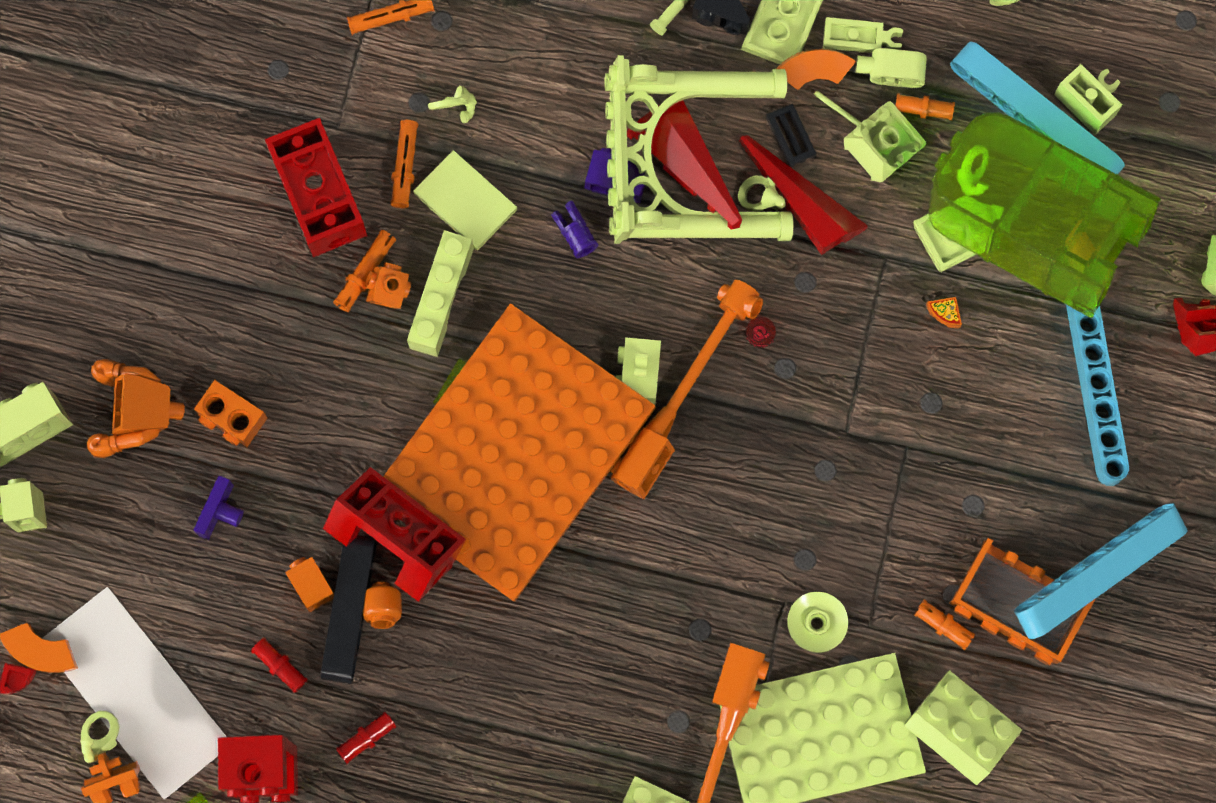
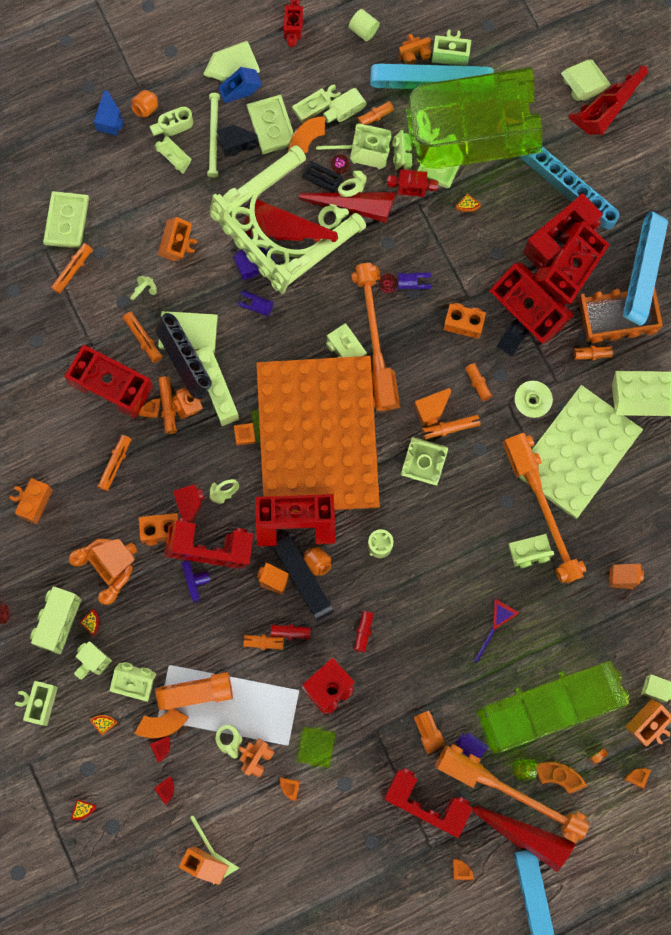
camera: 40 degrees left, 0 degrees up
(47, 571) = (132, 681): none -> yellowish green bracket
(59, 461) = (91, 622): none -> tile
(110, 260) = (32, 500): none -> orange brick
(131, 658) = (216, 688): none -> orange beam
(237, 651) = (263, 642): none -> orange pin
(255, 285) = (118, 455): none -> orange pin
(288, 412) = (189, 501): none -> red slope
(294, 513) = (233, 555): none -> red plate
(334, 432) = (219, 496): none -> yellowish green piece
(342, 260) = (151, 409): none -> orange tile
(426, 380) = (244, 434): none -> orange plate
(431, 207) = (183, 356): none -> black beam
(475, 646) = (380, 543): none -> yellowish green piece
(542, 75) = (175, 239): none -> orange brick
(617, 589) = (424, 461): none -> yellowish green slope
(682, 531) = (431, 407): none -> orange slope
(684, 573) = (450, 427): none -> orange pin
(767, 545) = (478, 382): none -> orange pin
(789, 350) = (409, 281): none -> dark purple hinge
(807, 458) = (463, 325): none -> orange brick
(826, 135) = (339, 164): none -> clear red tile
(826, 182) = (359, 182): none -> yellowish green piece
(861, 524) = (513, 337): none -> black slope
(896, 230) = (412, 183): none -> red piece
(911, 187) = (401, 144): none -> yellowish green hinge
(914, 530) = (546, 315): none -> red plate
(977, 500) = (564, 280): none -> red plate
(1045, 58) = (413, 47): none -> orange hips
(1073, 433) = (542, 248): none -> red plate

